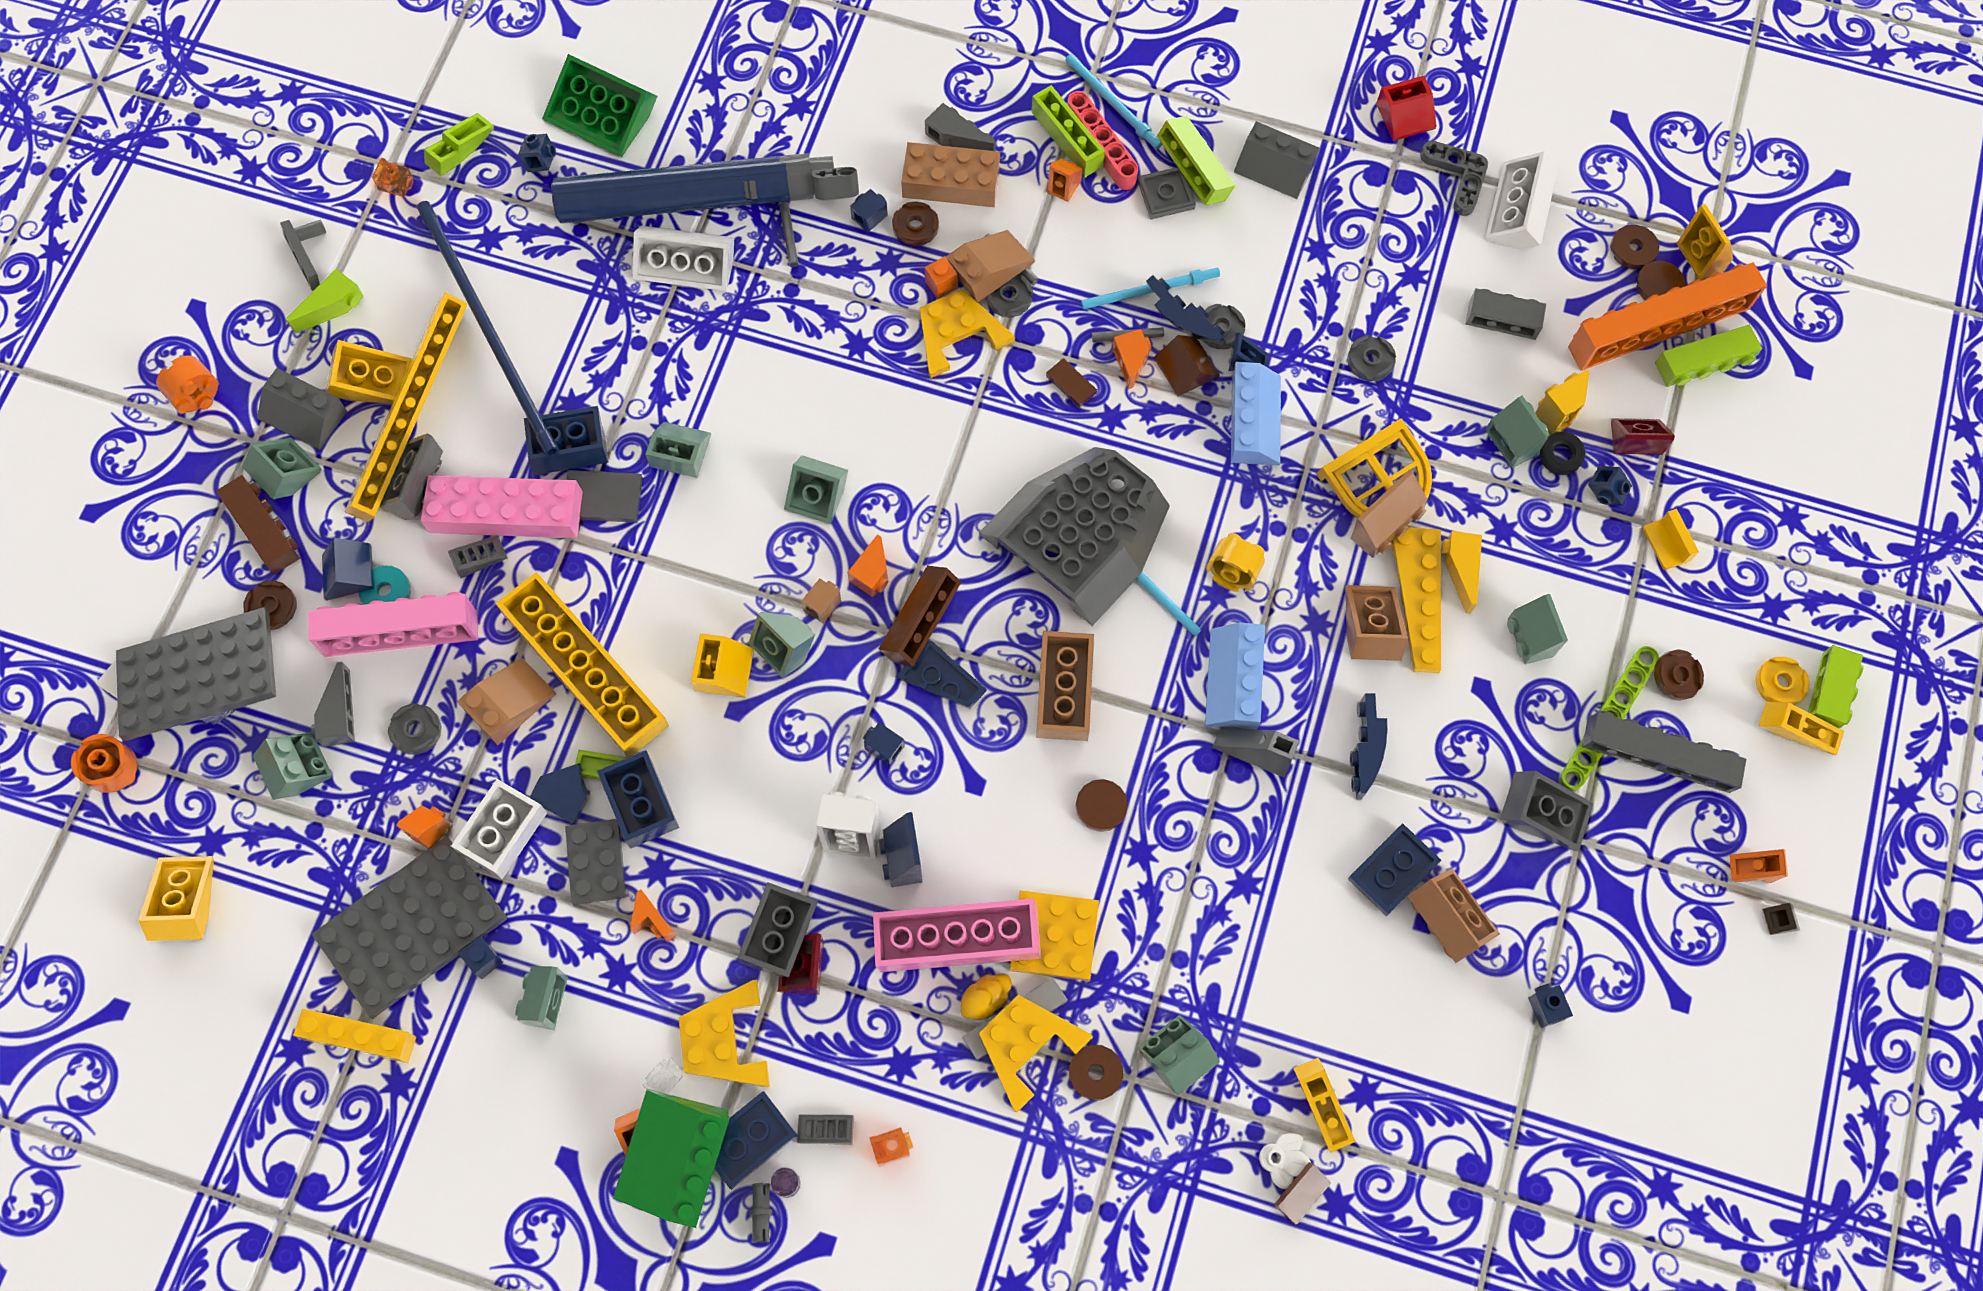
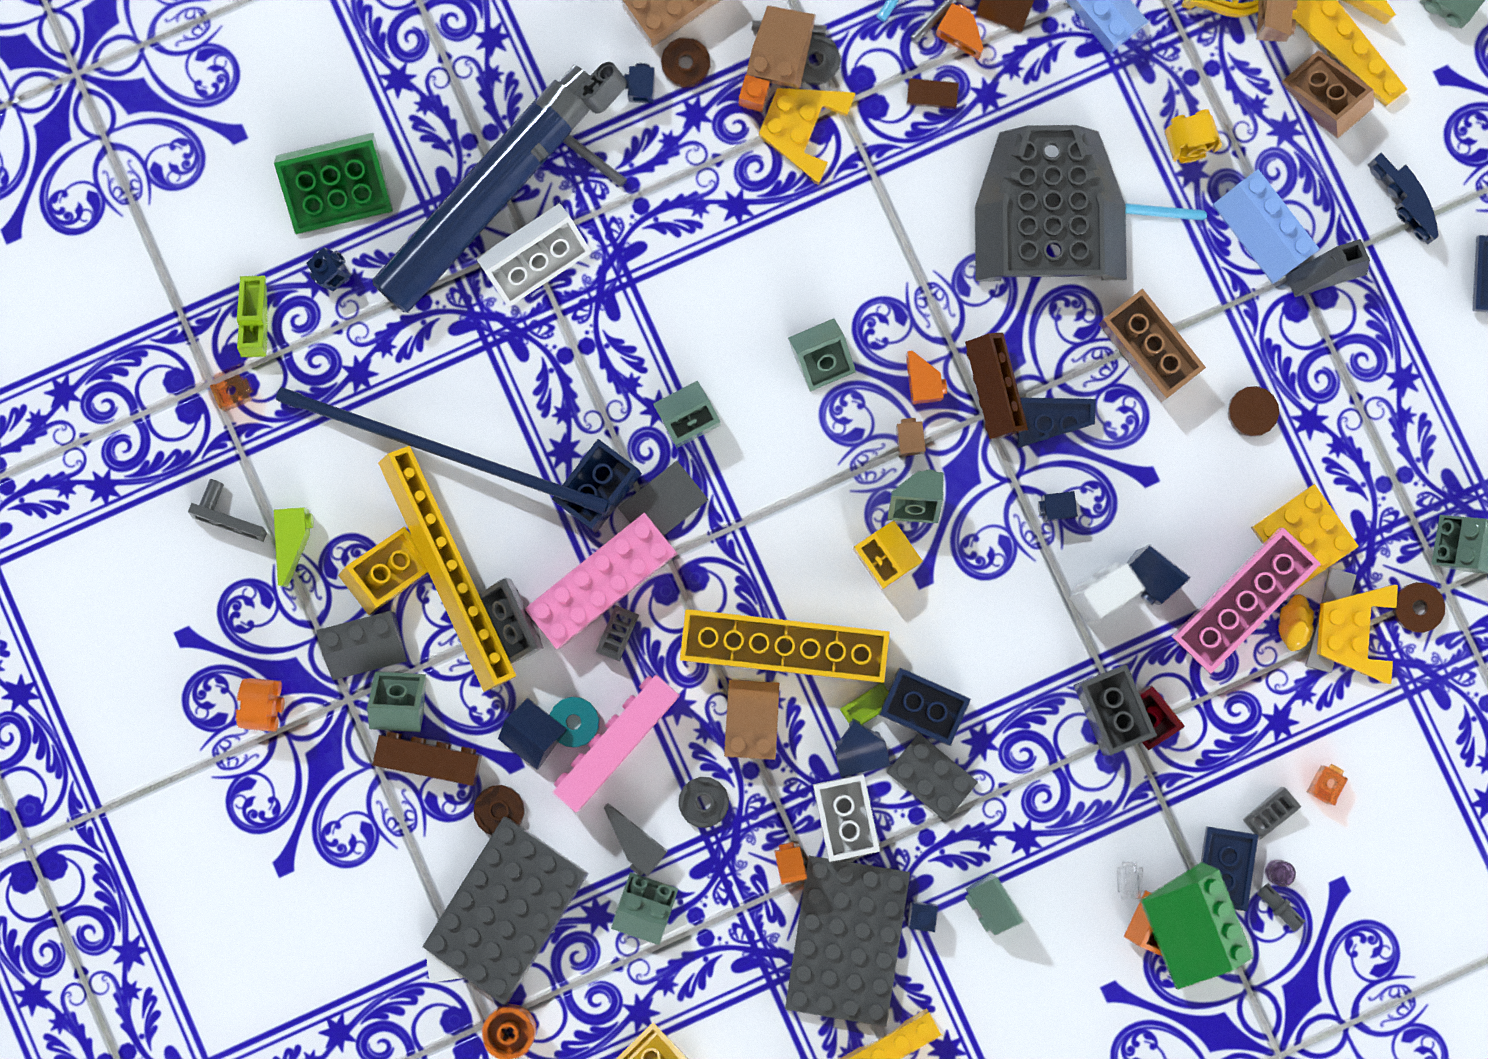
camera: 40 degrees left, 15 degrees up
(644, 914) = (1006, 781): orange slope -> none
(710, 1039) = (1135, 825): yellow wing -> none

